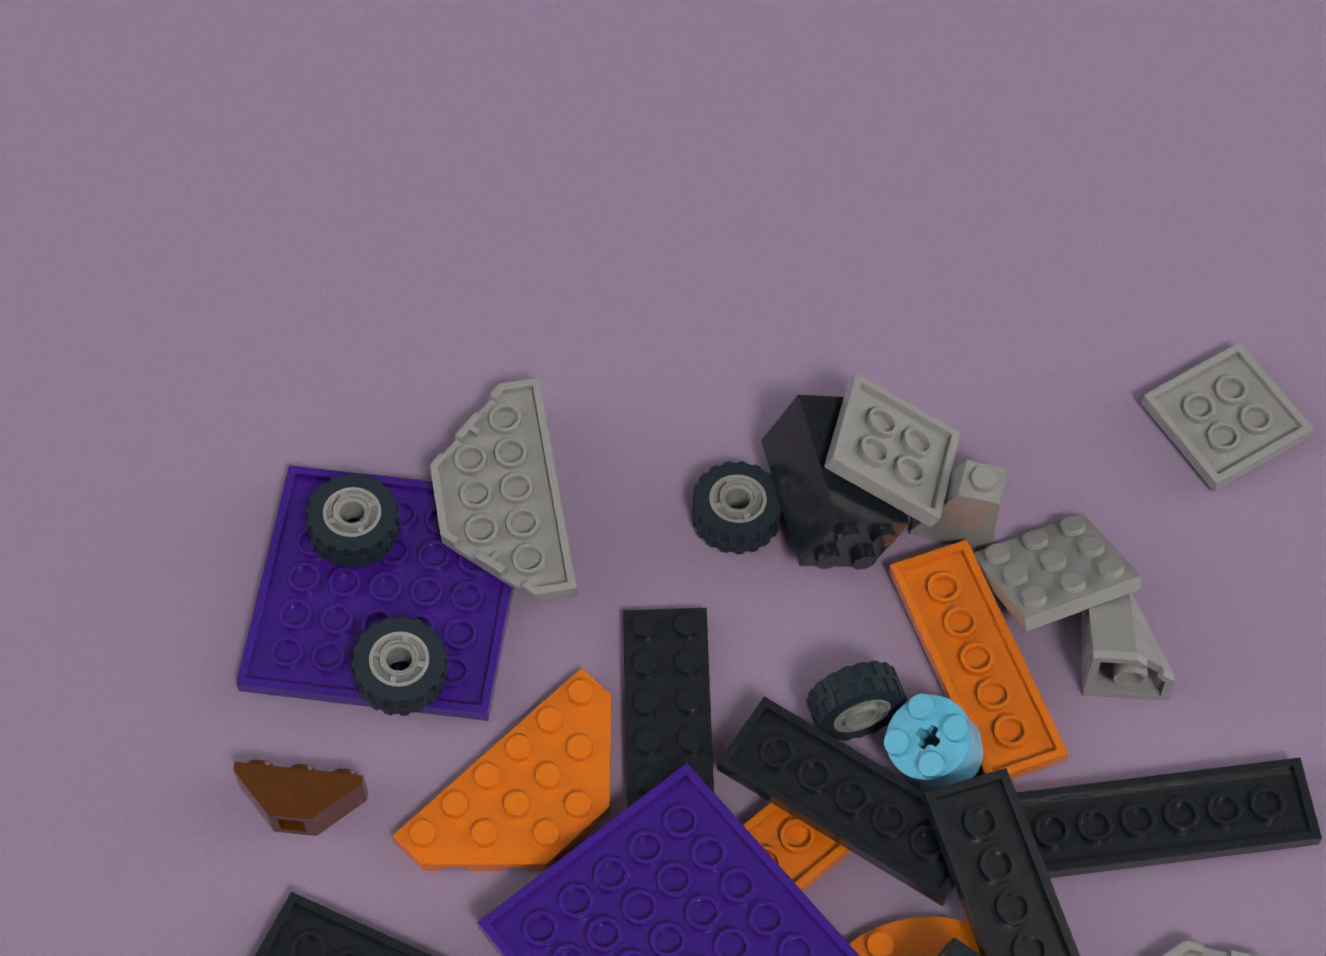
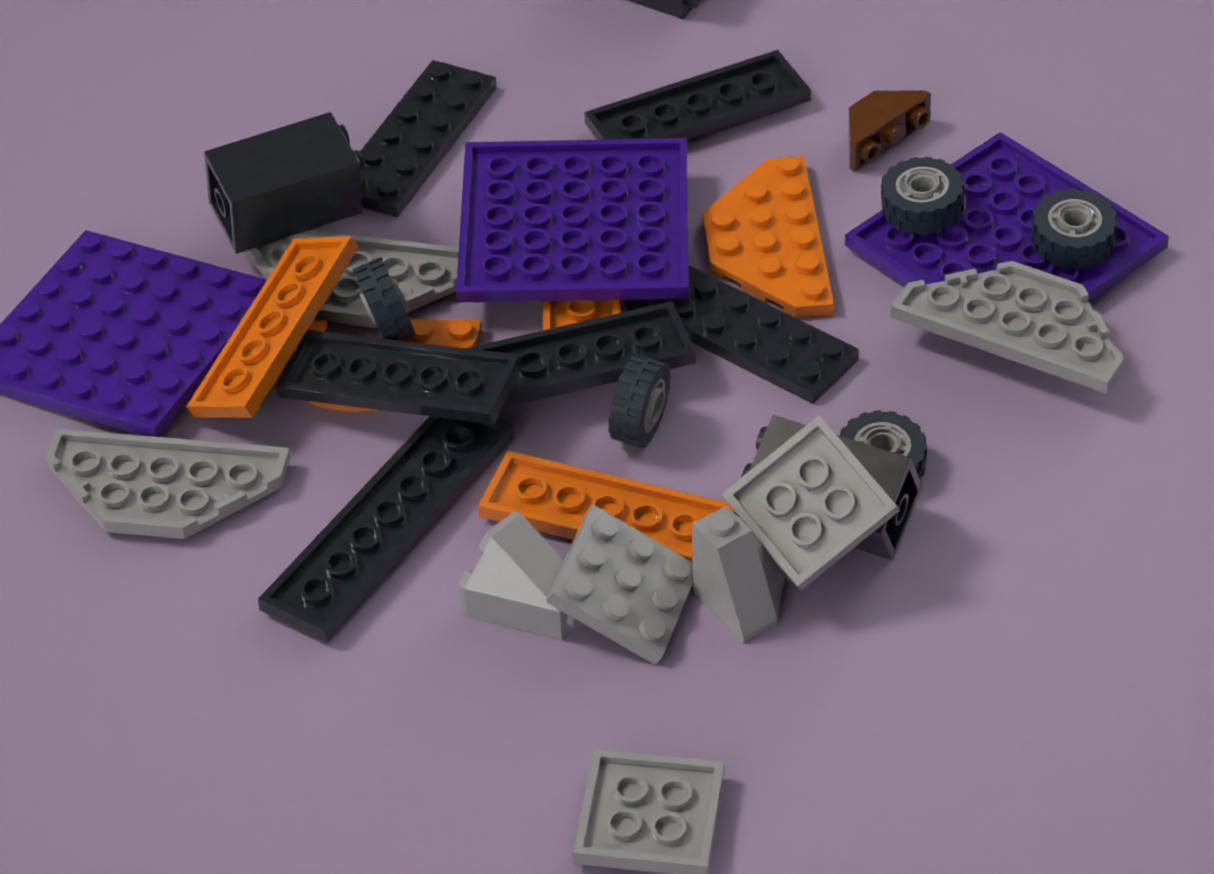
camera: 130 degrees right, 15 degrees down
(922, 723) = (563, 425): medium azure brick -> none

